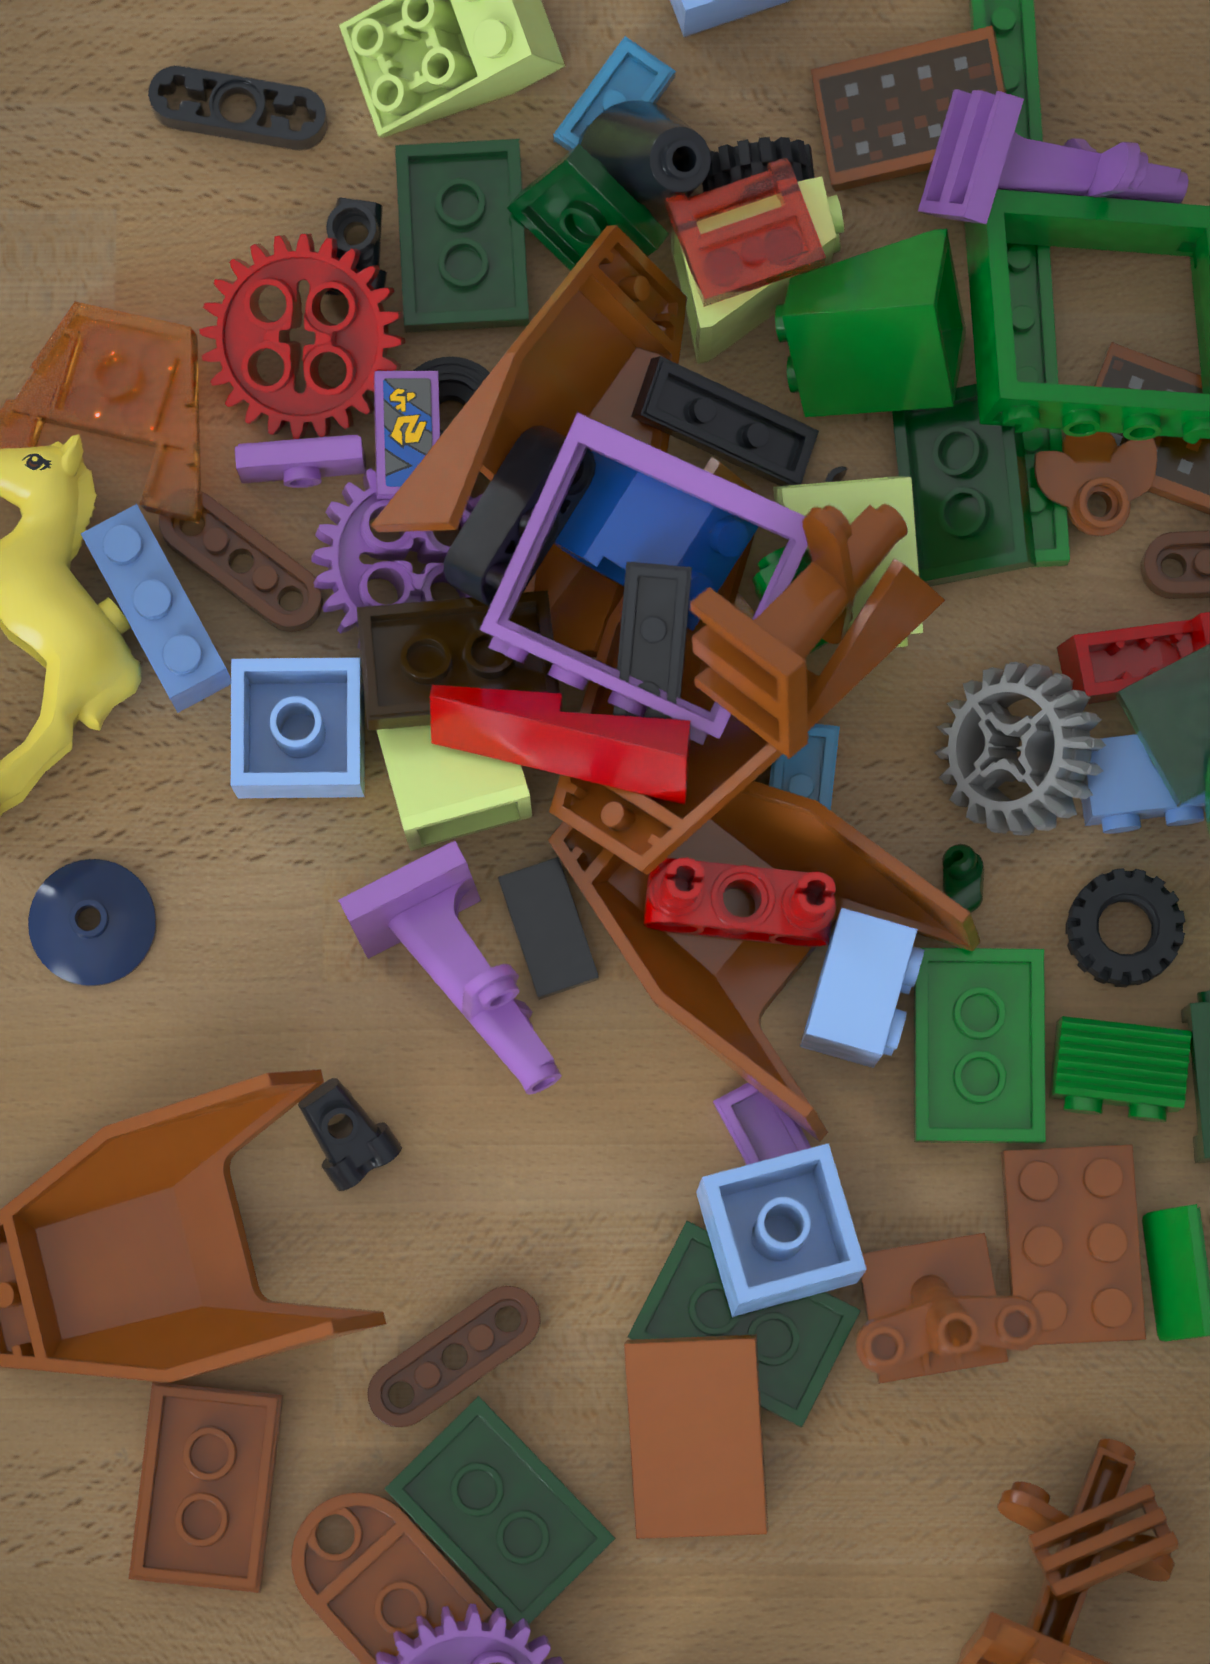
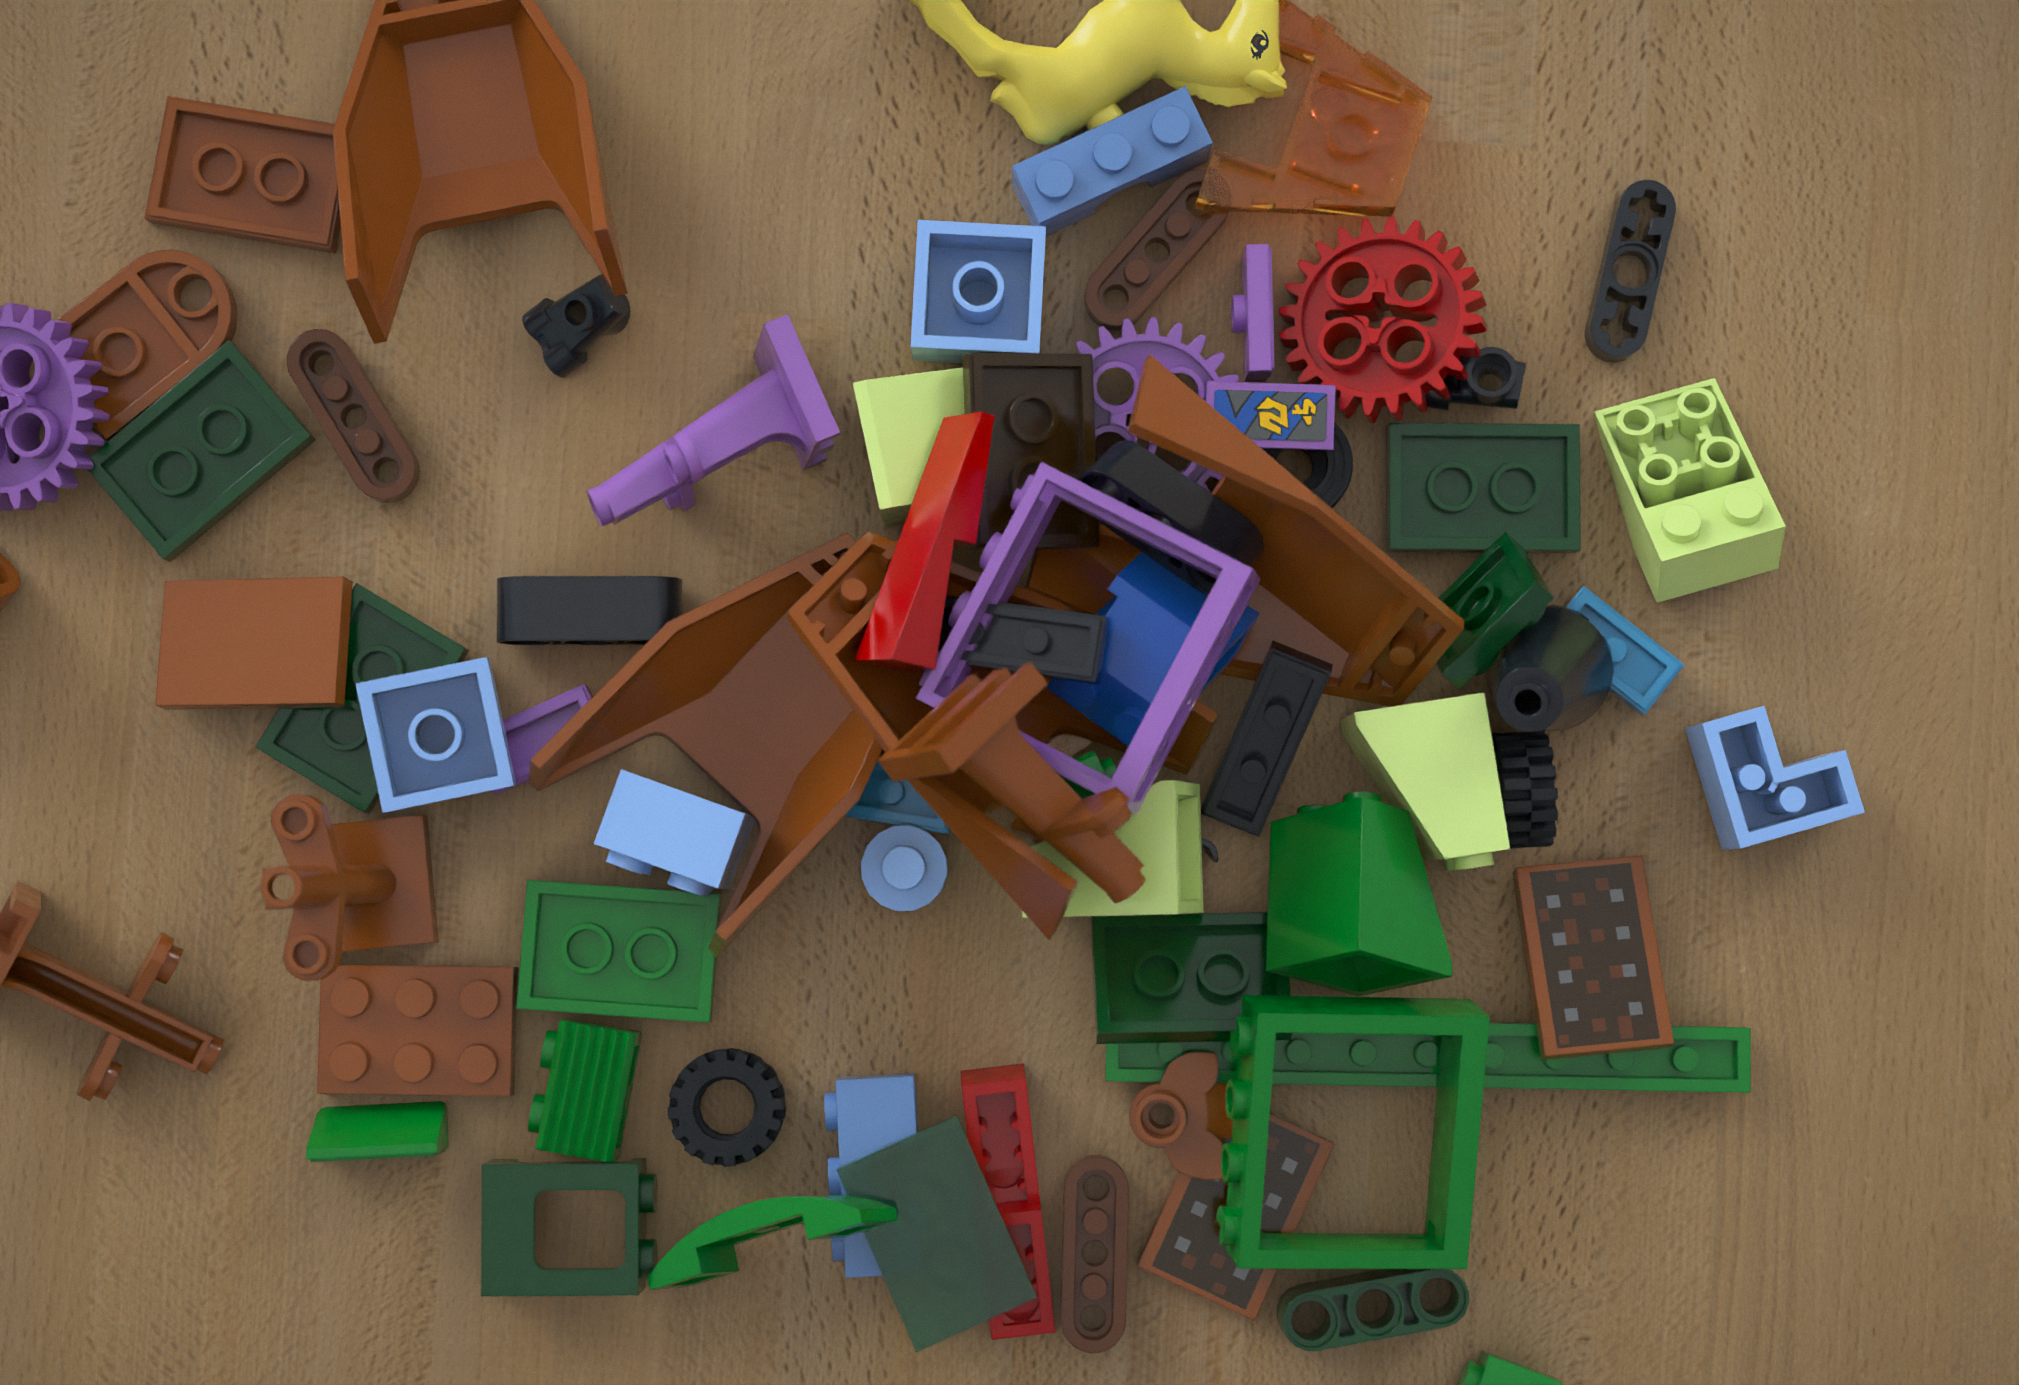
camera: 90 degrees right, 5 degrees up
(114, 945) = (814, 120): dark blue dish -> none
(548, 928) = (766, 532): black tile -> none
(639, 1100) = (585, 609): none -> black beam
(752, 249) = (1431, 770): clear red plate -> none
(789, 905) = (762, 765): red piece -> none
(876, 769) = (904, 868): none -> light blue piece
(963, 876) = (782, 946): dark green arm -> none
(985, 154) = (1525, 1021): medium lavender piece -> none
(1052, 756) = (895, 1043): light grey gear -> none
(1152, 1519) = (91, 978): dark orange tile -> none

